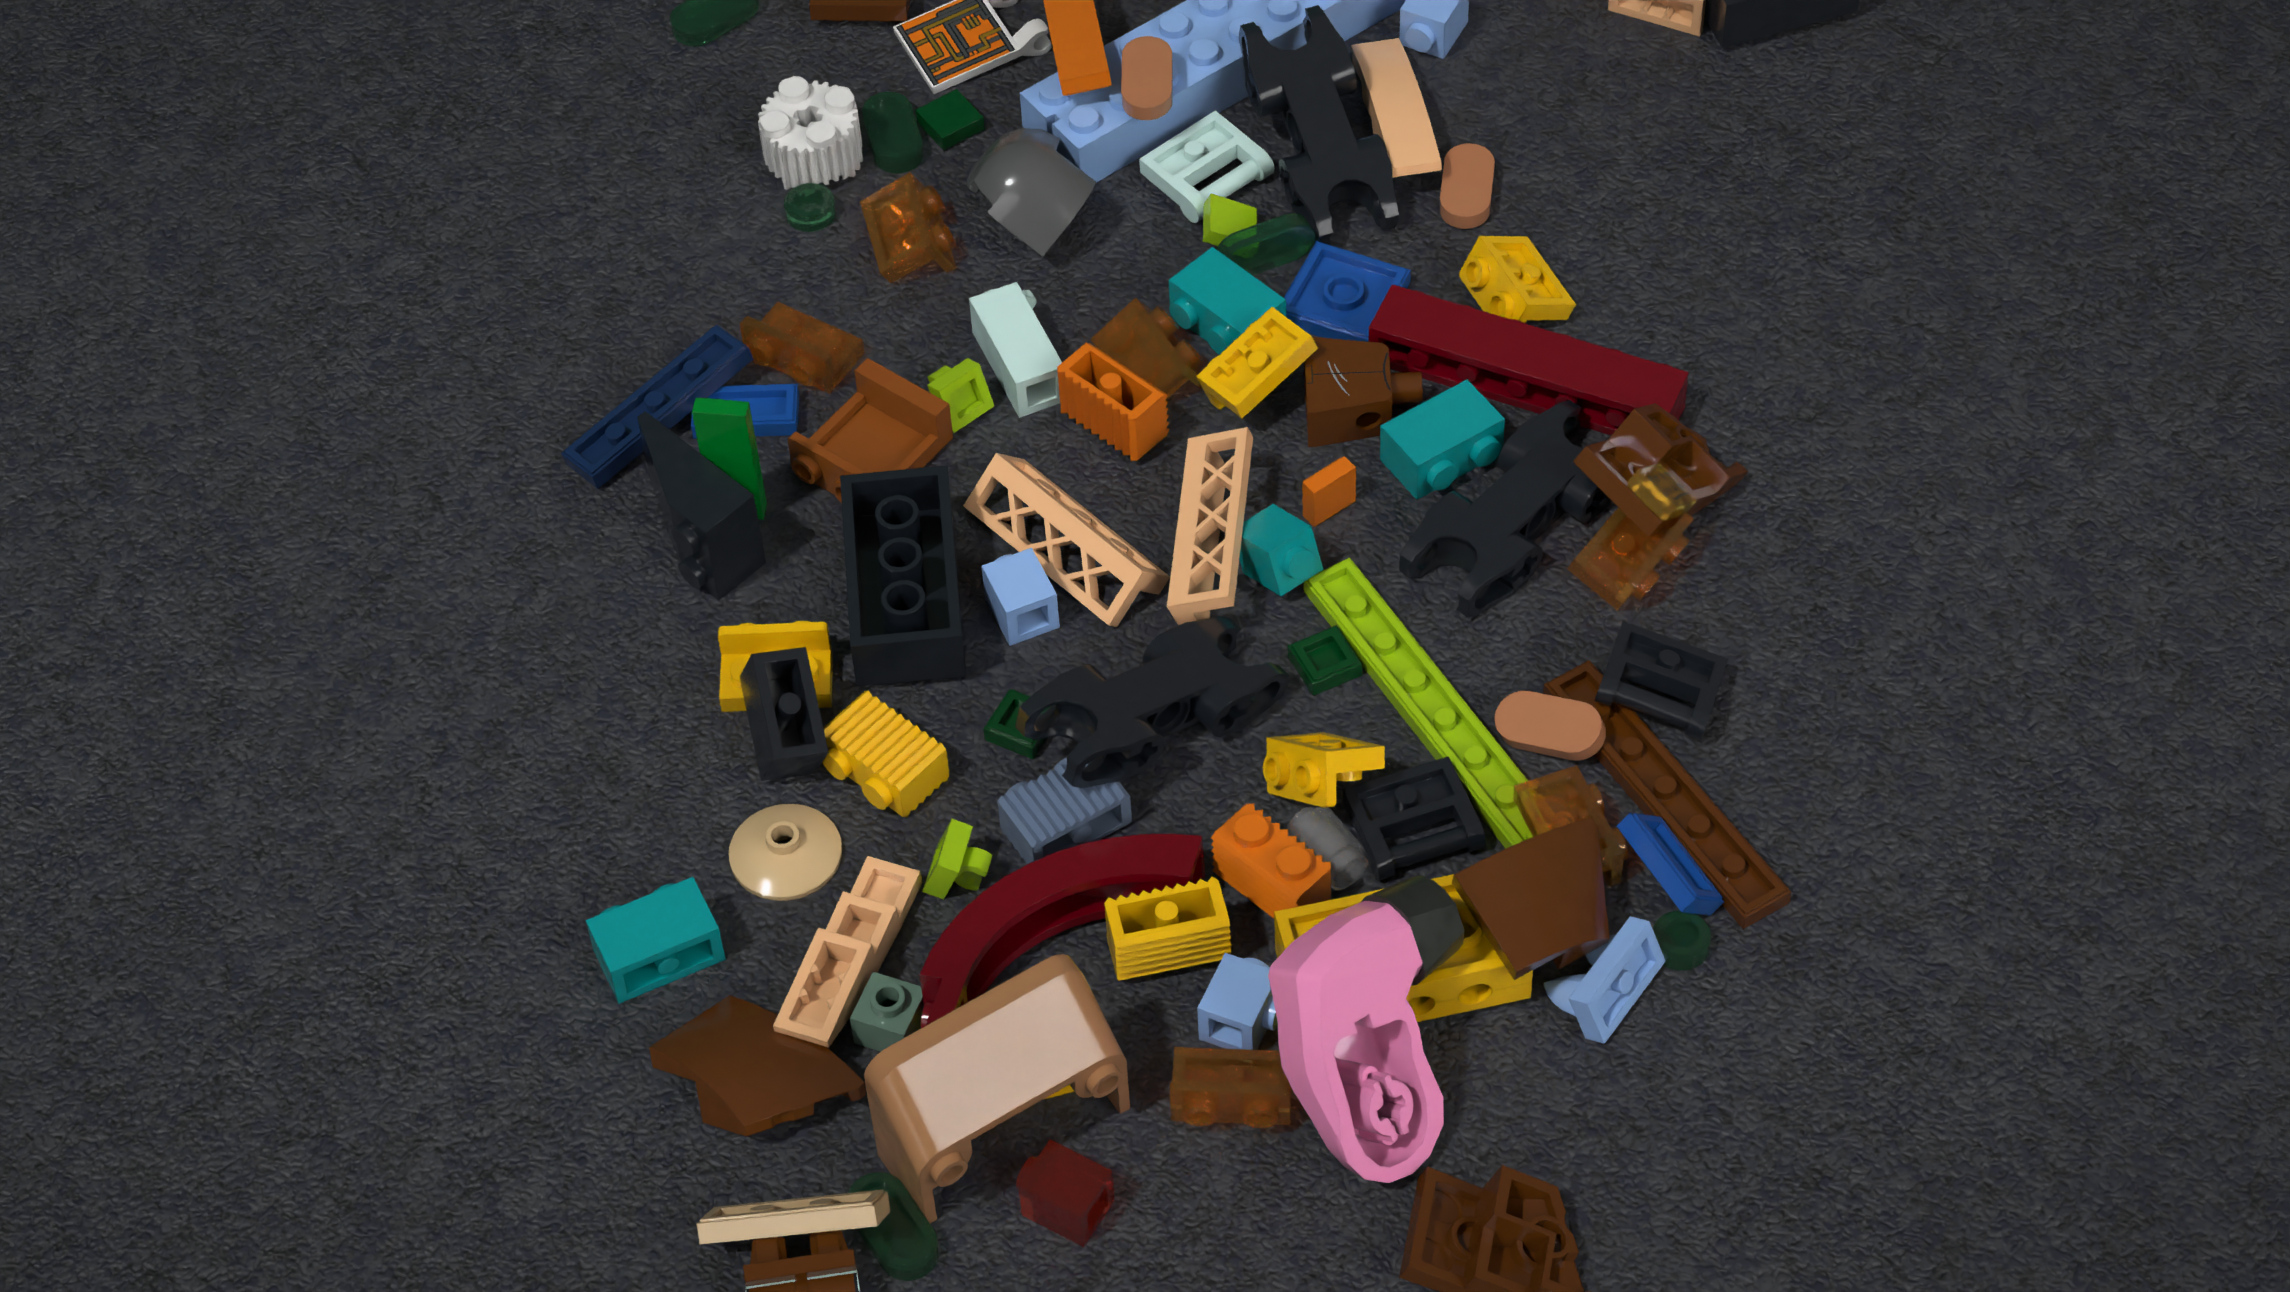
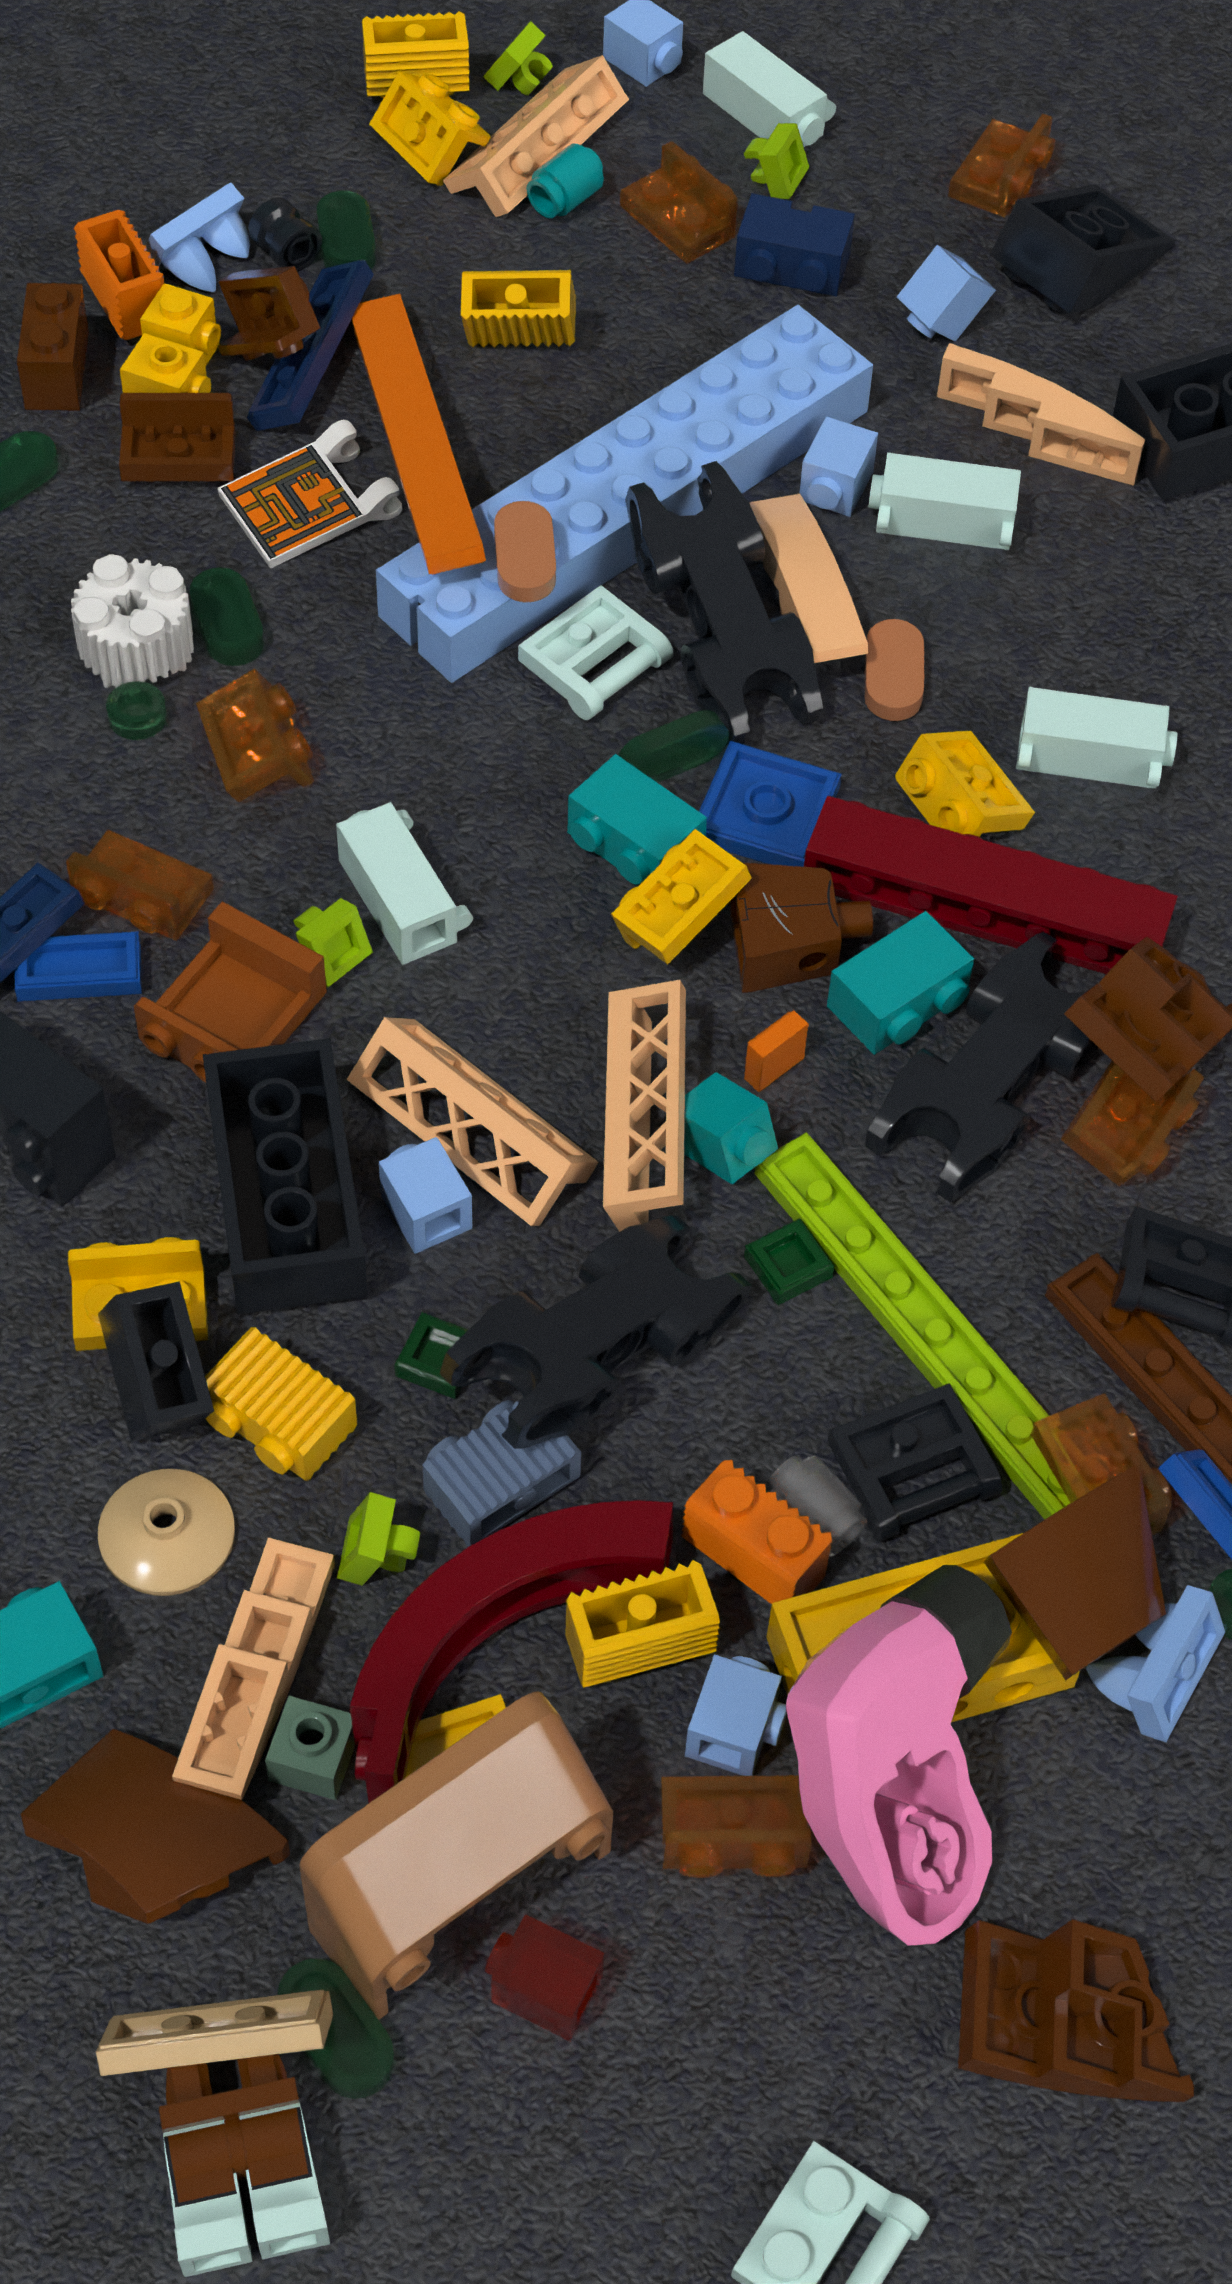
camera: 10 degrees left, 5 degrees up
(729, 442) = (68, 1021): green tile -> none
(950, 119) = (292, 599): dark green tile -> none
(1030, 186) = (397, 683): dark grey brick -> none
(1112, 401) = (515, 947): orange brick -> none
(1146, 345) = (548, 886): clear orange bracket -> none
(1225, 217) = (624, 717): lime tile -> none
(1310, 764) = (797, 1400): yellow bracket -> none
(1526, 45) = (946, 501): none -> light aqua brick
(1550, 725) = (1062, 1337): nougat tile -> none
(1635, 244) = (1095, 738): none -> light aqua brick
(1661, 492) = (1167, 1047): clear yellow tile -> none

